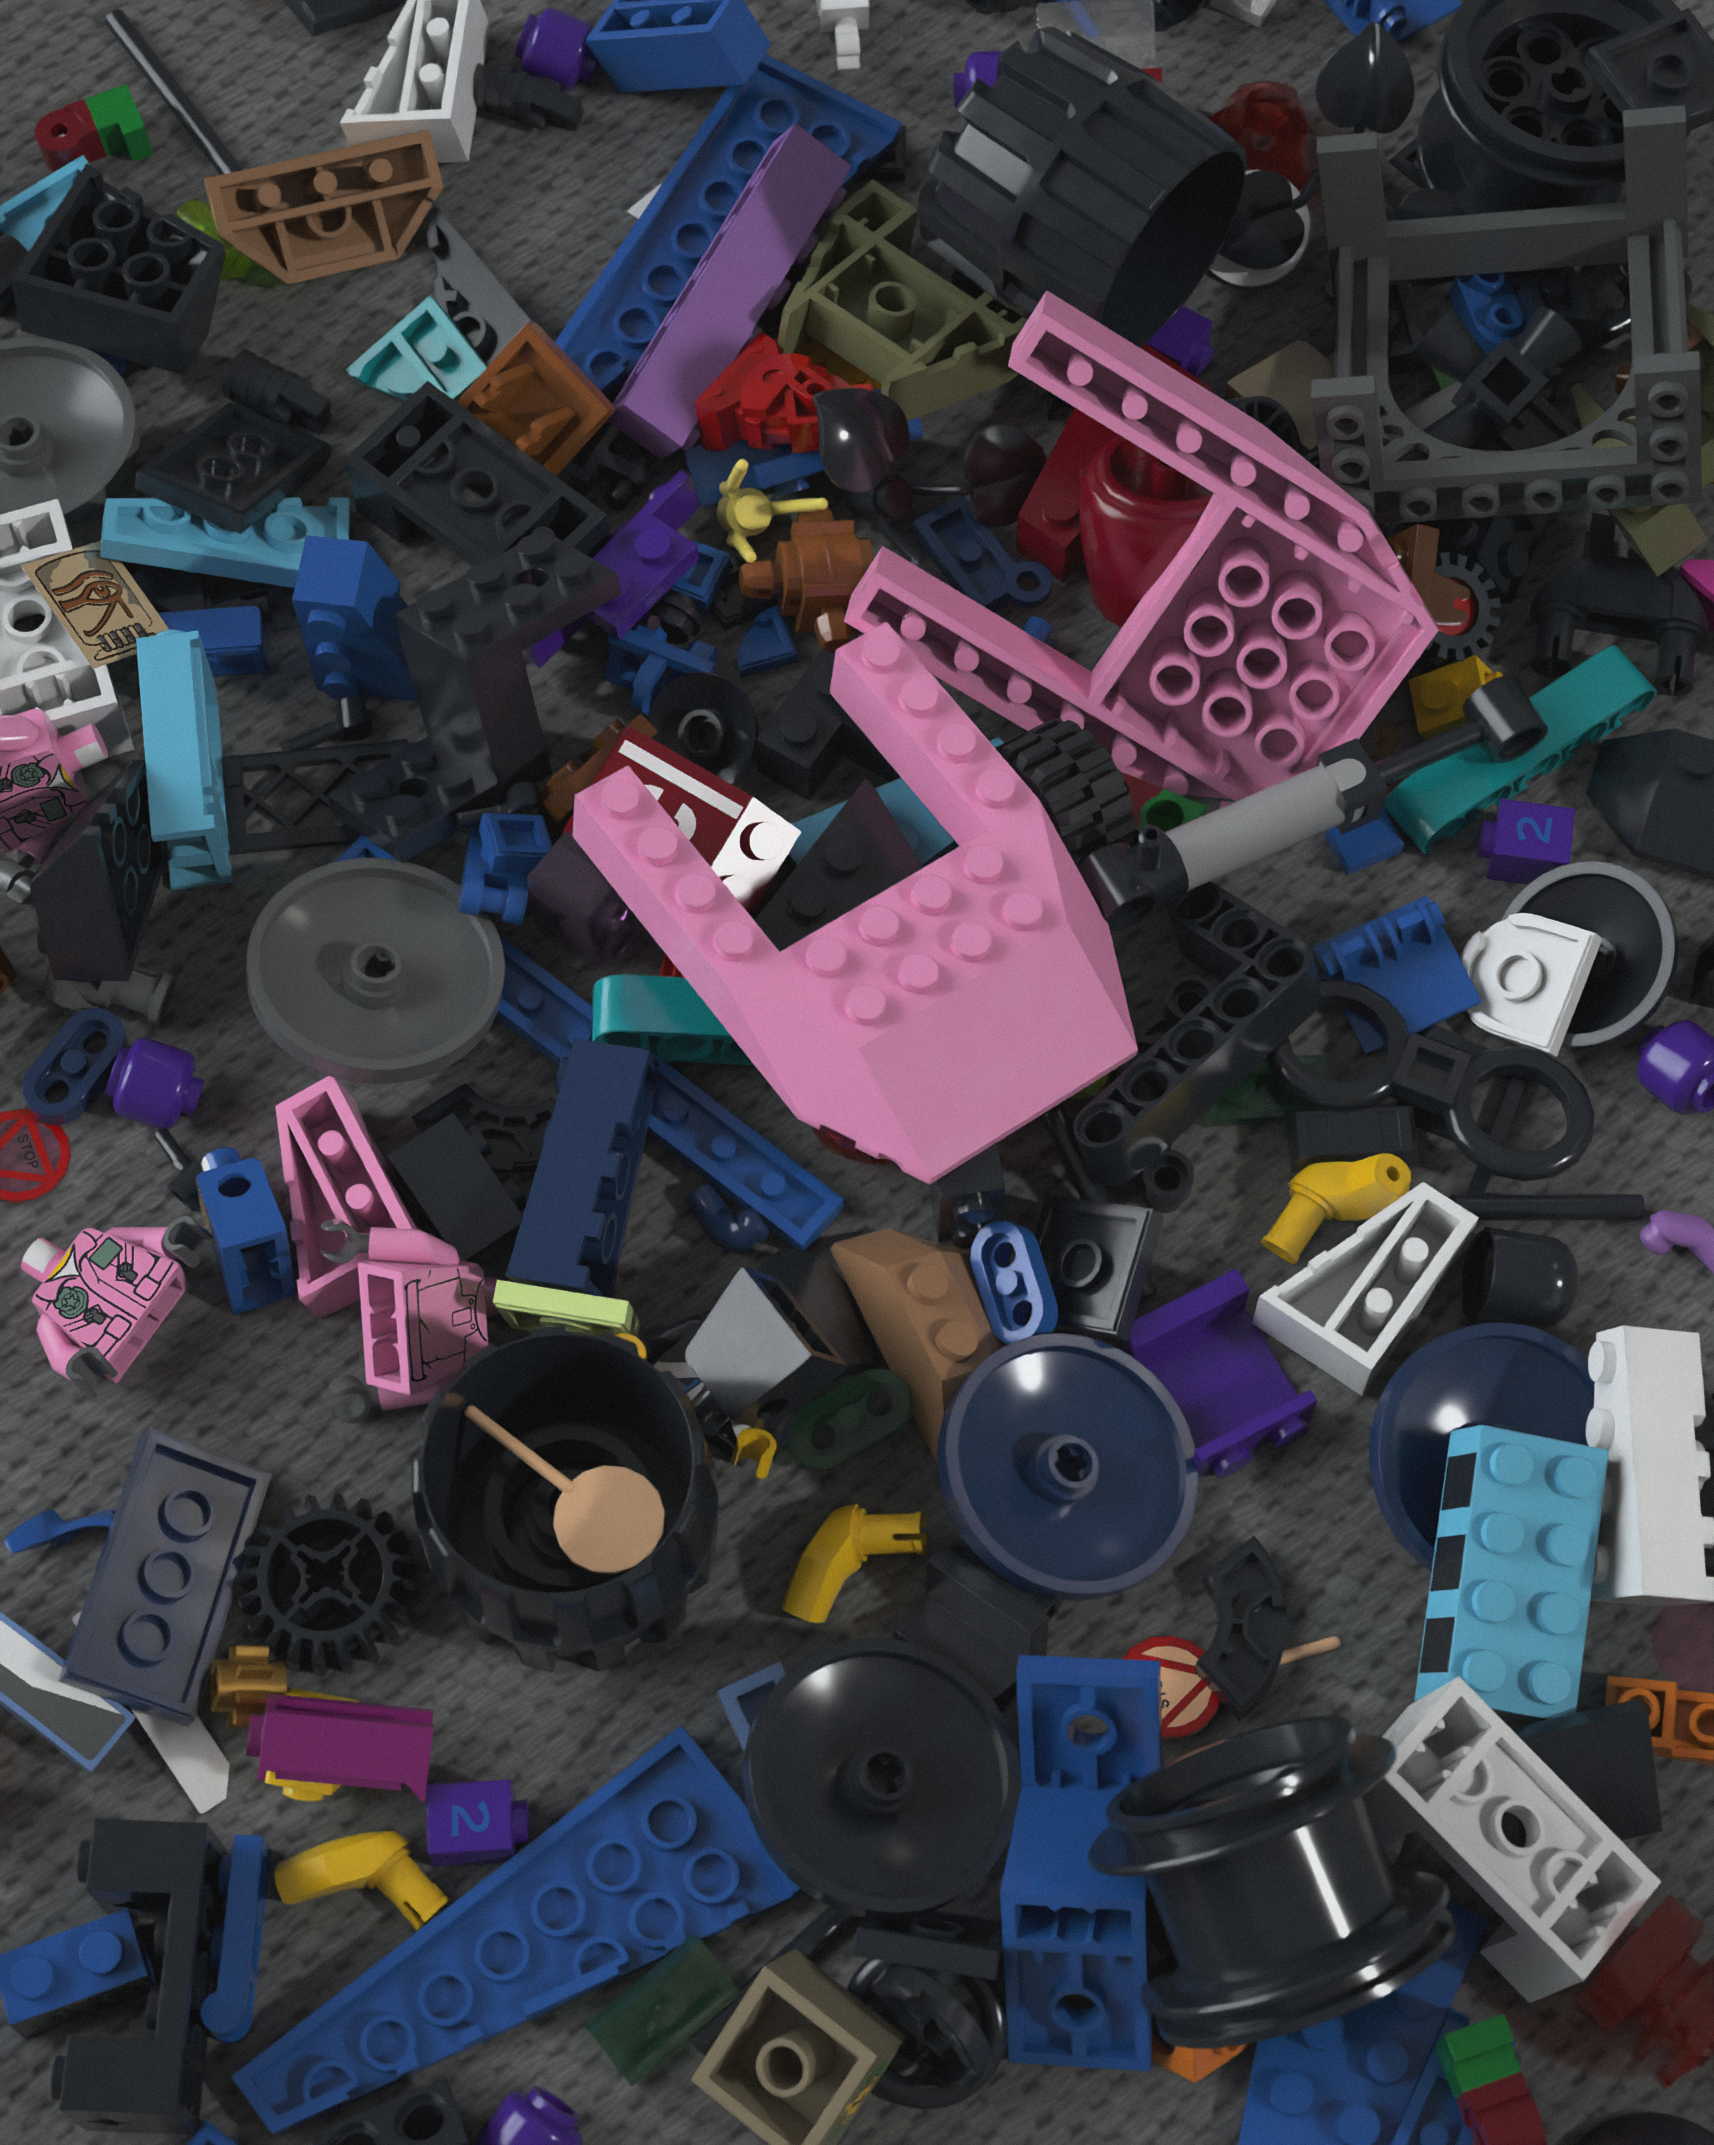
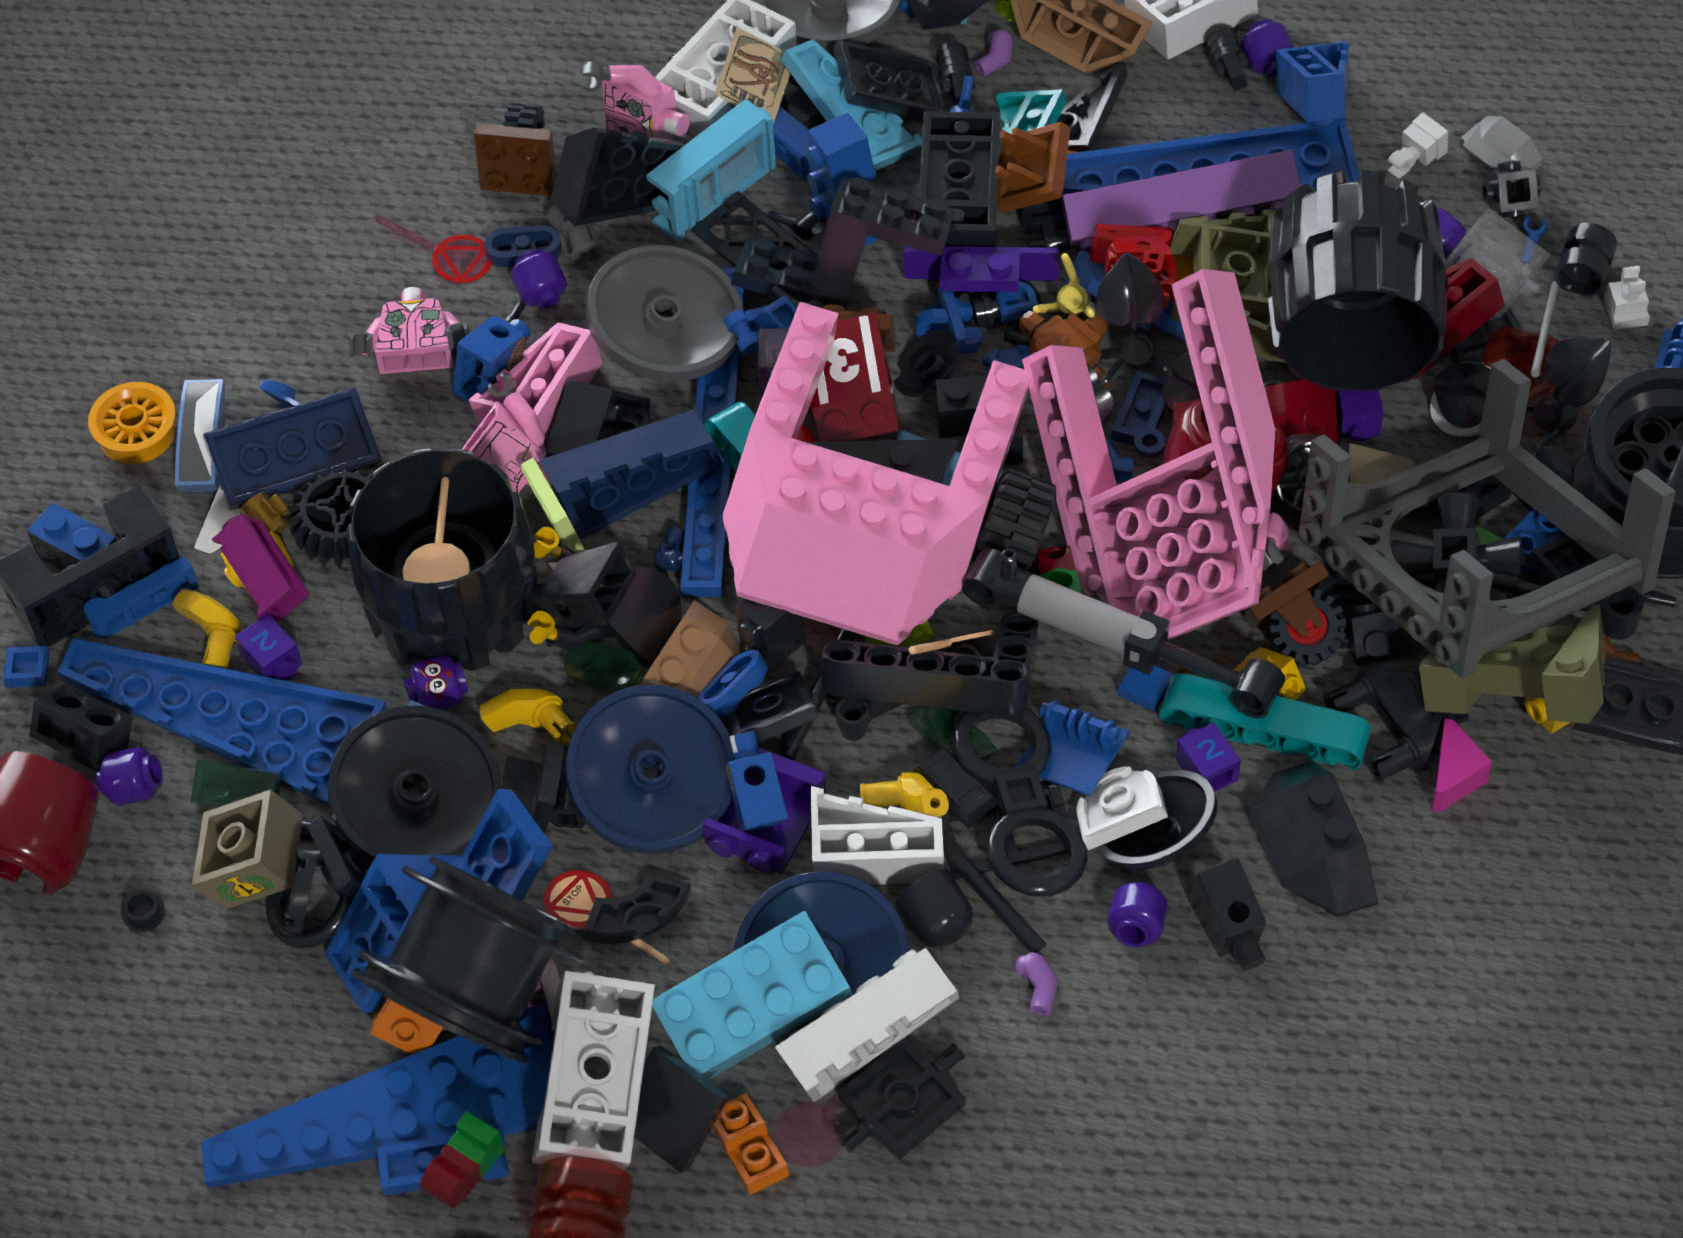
camera: 55 degrees right, 10 degrees down
(273, 312) = (999, 54): none -> medium lavender arm
(339, 429) = (964, 102): none -> blue hand
(709, 1642) = (436, 682): none -> dark purple head
(1152, 982) = (946, 643): none -> light nougat piece
(1218, 1364) = (760, 804): none -> blue torso
(1253, 82) = (1544, 330): none -> light grey axle

